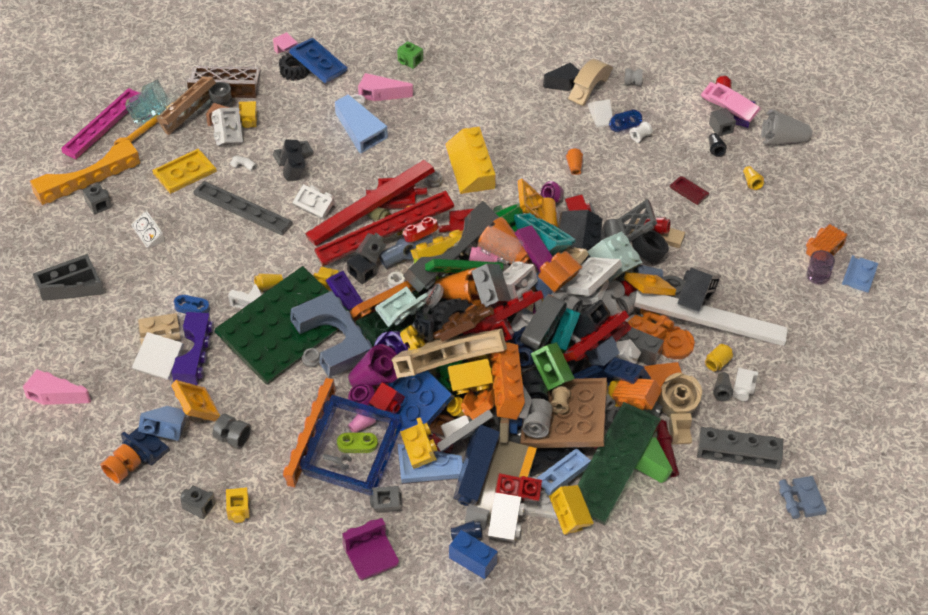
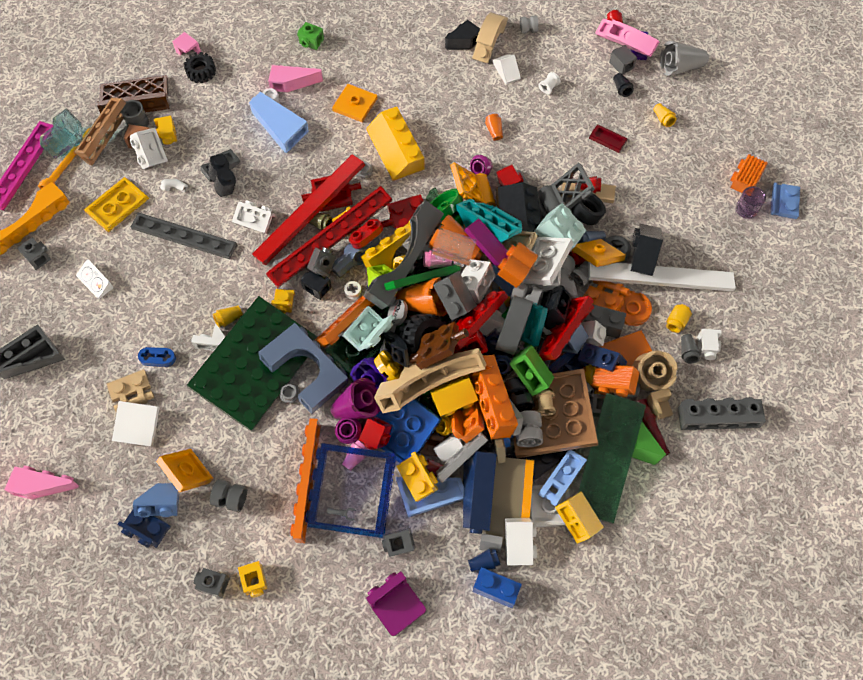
camera: 10 degrees left, 15 degrees up
(117, 466) = (124, 556): orange wheel -> none
(189, 366) = (169, 431): dark purple arch -> none
(318, 60) = (222, 57): blue tile -> none
(344, 290) = (305, 314): dark purple plate -> none
(357, 442) = (355, 482): lime plate -> none
(439, 120) = (354, 102): none -> light orange plate
(522, 486) = (525, 507): red slope -> none
(624, 120) = (531, 73): clear blue plate -> none
(808, 495) = (794, 452): sand blue plate -> none

